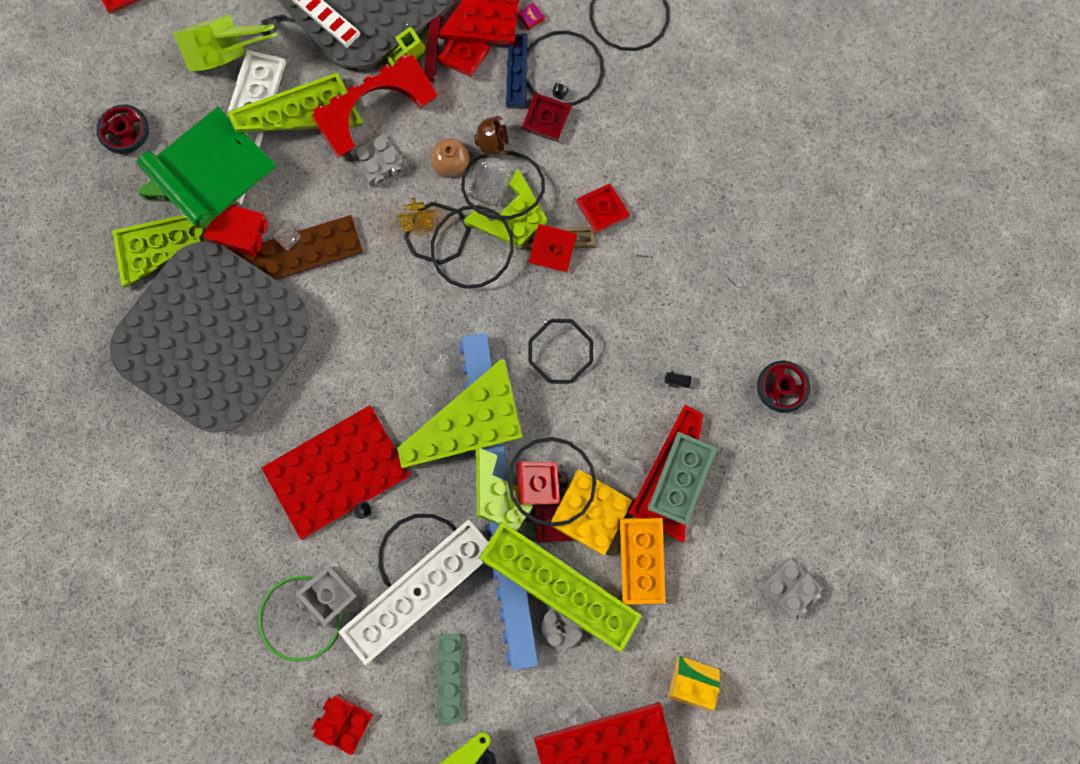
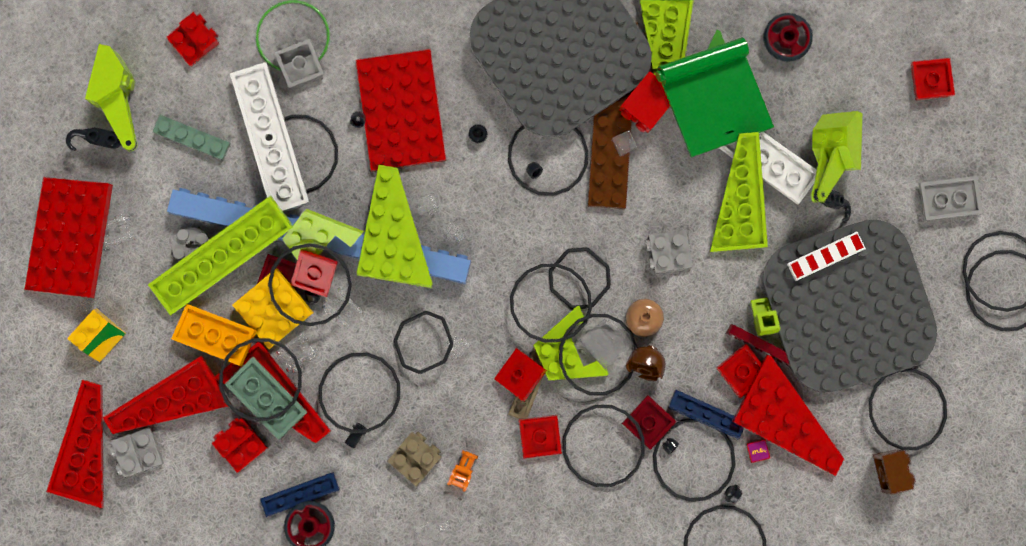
camera: 120 degrees right, 5 degrees up
(331, 378) = (482, 129): none -> black plate
(346, 315) = (534, 170): none -> black hinge
(367, 309) = (547, 193): none -> black piece
(402, 77) = (736, 304): red arch -> none
(406, 219) = (602, 264): clear yellow hips -> none
(579, 21) = (733, 493): none -> black plate
(602, 115) = (604, 484): none -> black piece
(653, 429) = (359, 430): none -> black piece
(669, 265) = (463, 472): none -> orange connector
(673, 314) = (415, 458): none -> dark tan plate
(705, 475) = (221, 379): none -> black piece
(720, 572) = (180, 395): none -> red wing
(737, 489) = (239, 444): none -> red plate
(757, 410) = (300, 493): none -> dark blue tile
(825, 643) = (80, 457): none -> red wing

